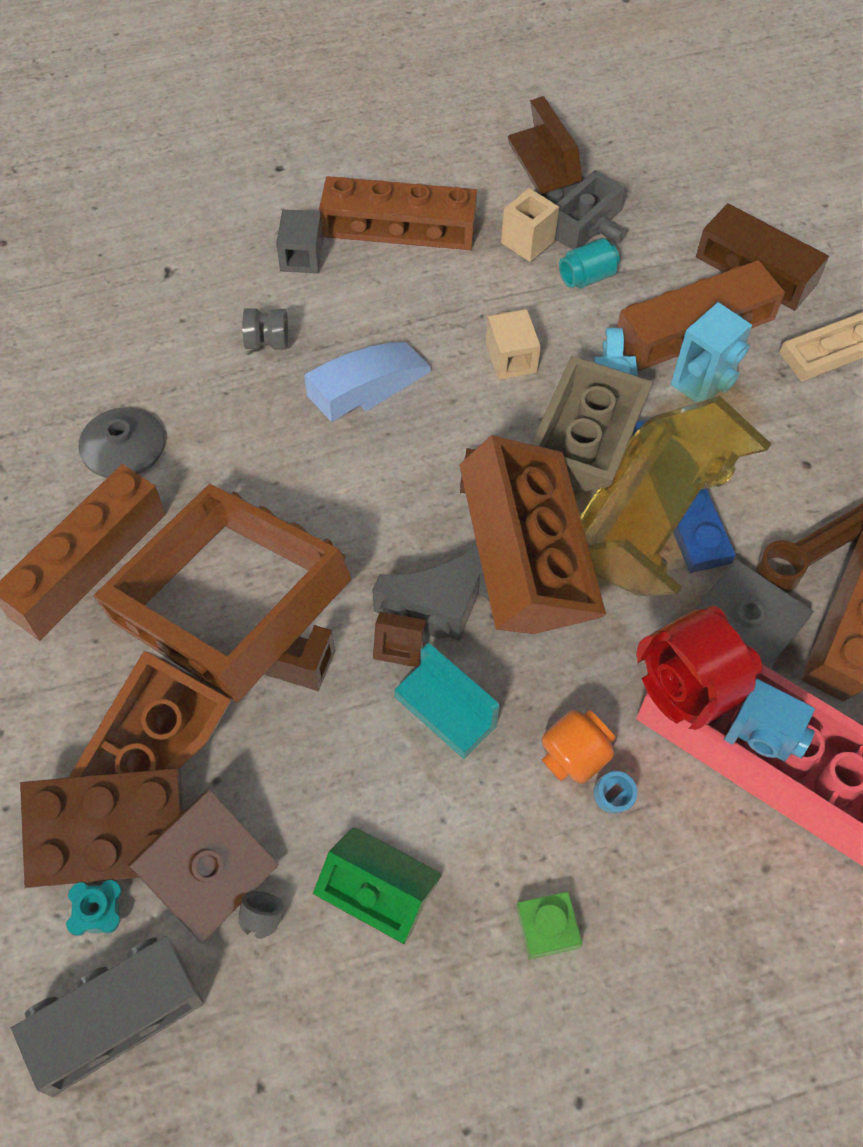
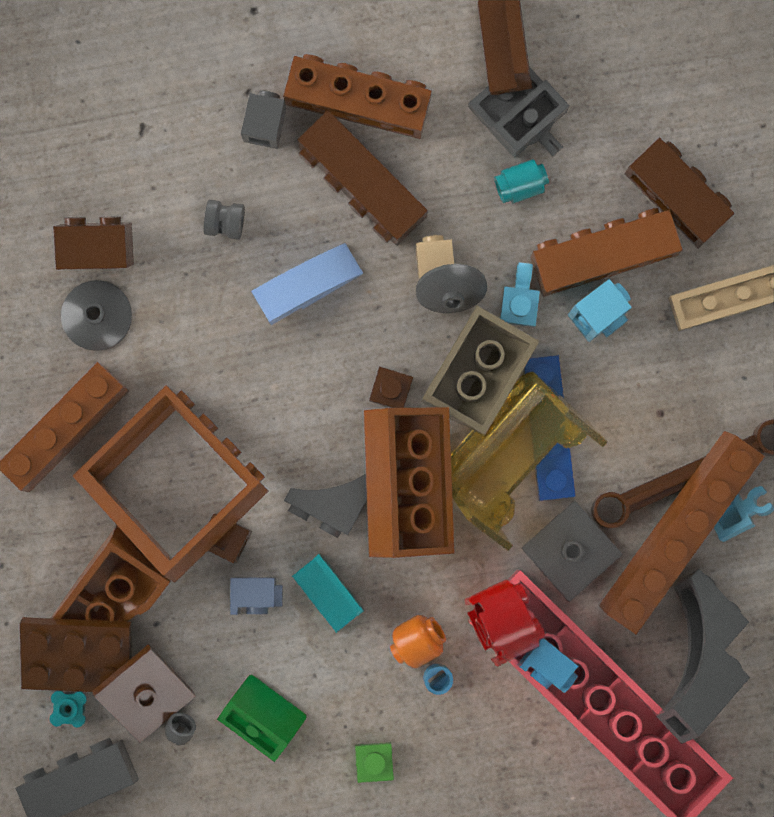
camera: 10 degrees right, 25 degrees up
(114, 362) = (93, 244): none -> reddish brown brick
(347, 715) = (254, 594): none -> sand blue brick
(398, 639) = (300, 536): reddish brown plate -> none
(417, 278) = (361, 178): none -> reddish brown brick
(524, 344) = (451, 288): none -> dark grey dish
(529, 224) = (473, 135): tan brick -> none

